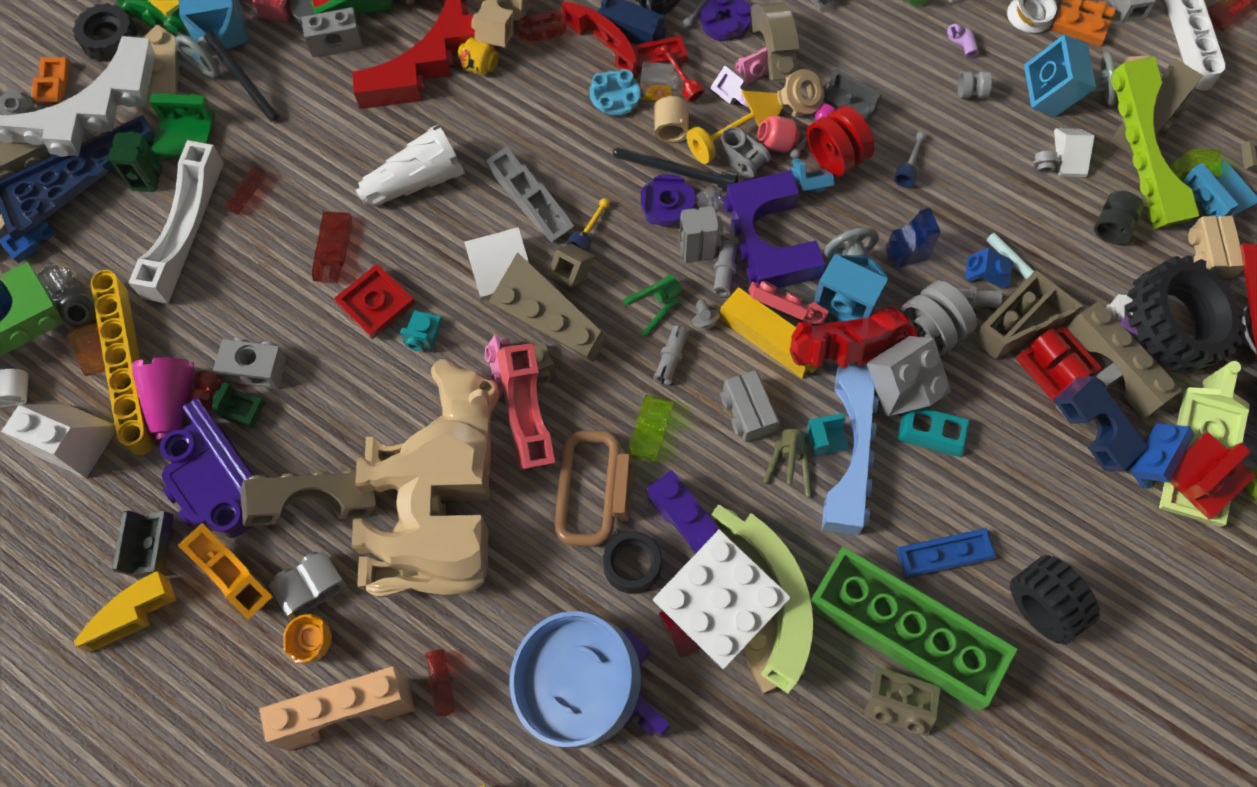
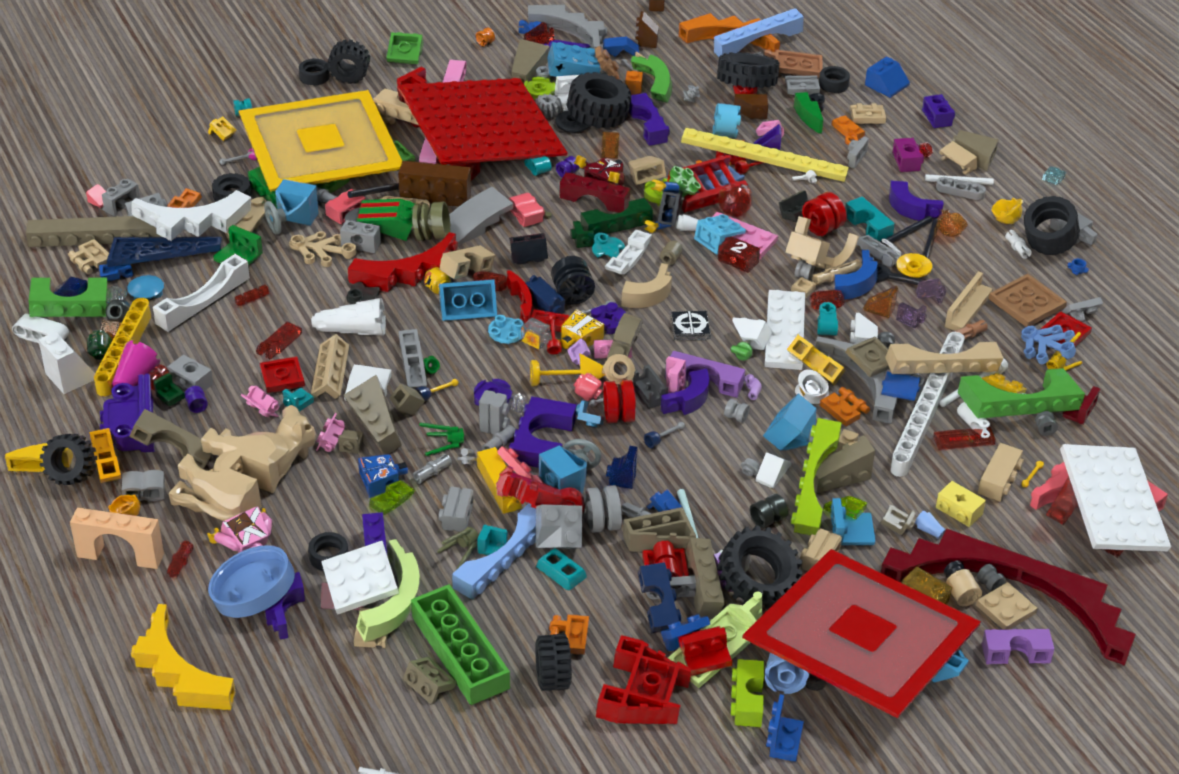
camera: 25 degrees right, 25 degrees down
(86, 376) = (98, 344): none -> dark green head
(88, 245) = (146, 287): none -> dark azure dish
(135, 162) = (199, 255): dark green brick -> none
(142, 543) = (73, 424): pearl dark grey bracket -> none
(171, 628) = (53, 459): none -> black tyre
(240, 75) = (290, 238): black bar -> none
(283, 398) = (196, 399): none -> dark purple wheel
(287, 71) = (301, 243): none -> tan plant
(391, 364) = (255, 400): none -> bright pink hinge
(396, 119) = (360, 293): none -> pearl dark grey plate
(434, 252) = (330, 367): none -> tan fence
(506, 594) = (244, 530): none -> torso
(519, 382) = (324, 448): coral arch -> none
(538, 69) = (467, 300): none -> dark azure slope
(560, 191) = (435, 365): none -> green plate
(613, 399) = (379, 472): none -> blue torso
(617, 492) = (346, 519): medium nougat bar -> none
(671, 119) = (525, 352): tan piece -> none
(709, 51) = (581, 327): none -> yellow torso
(721, 180) = (511, 380): black piece -> none
(746, 155) = (558, 386): light grey piece -> none
(880, 71) = (675, 374): none -> bright pink bracket
(909, 74) = (690, 398): none -> dark purple arch
(929, 42) = (726, 377): none -> medium lavender arch
(945, 553) = (514, 627): blue tile -> none
(1027, 526) = (575, 629): none -> orange plate
(1181, 564) = (648, 688): none -> red wedge

